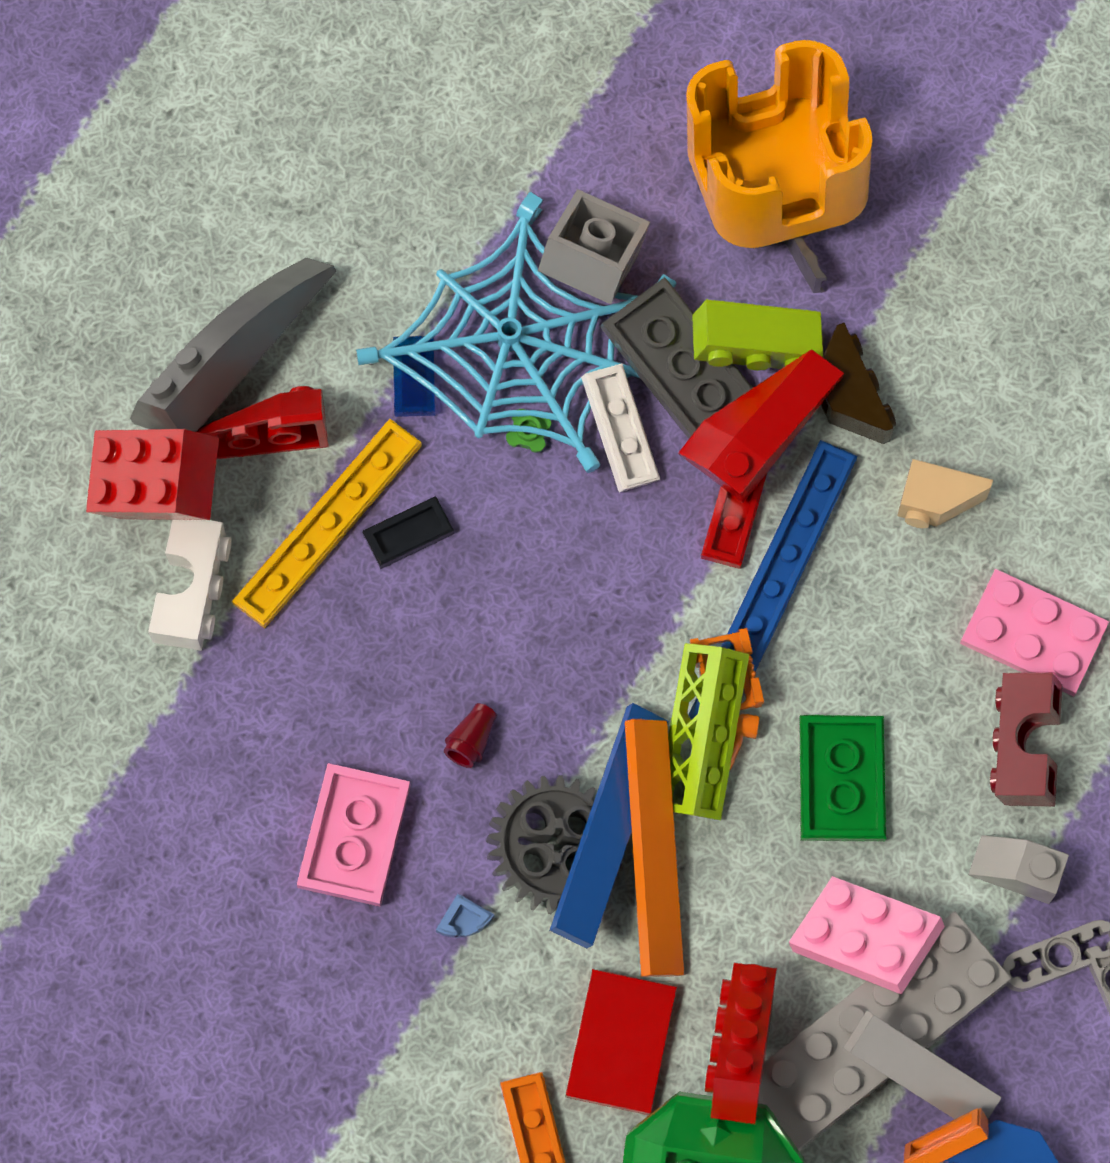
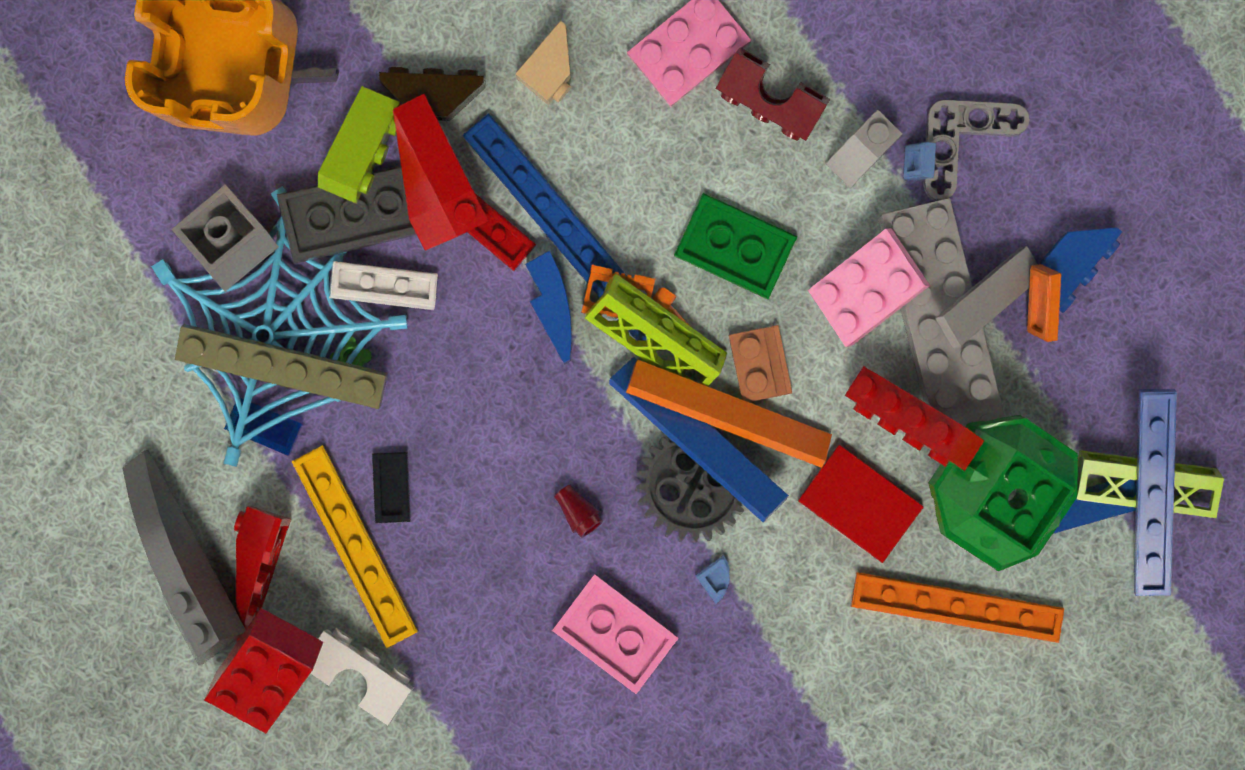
camera: 65 degrees left, 15 degrees up
(485, 361) = (281, 366): none -> olive plate
(683, 609) = (553, 303): none -> blue slope
(725, 862) = (760, 364): none -> nougat plate
(1035, 933) = (919, 161): none -> medium blue tile

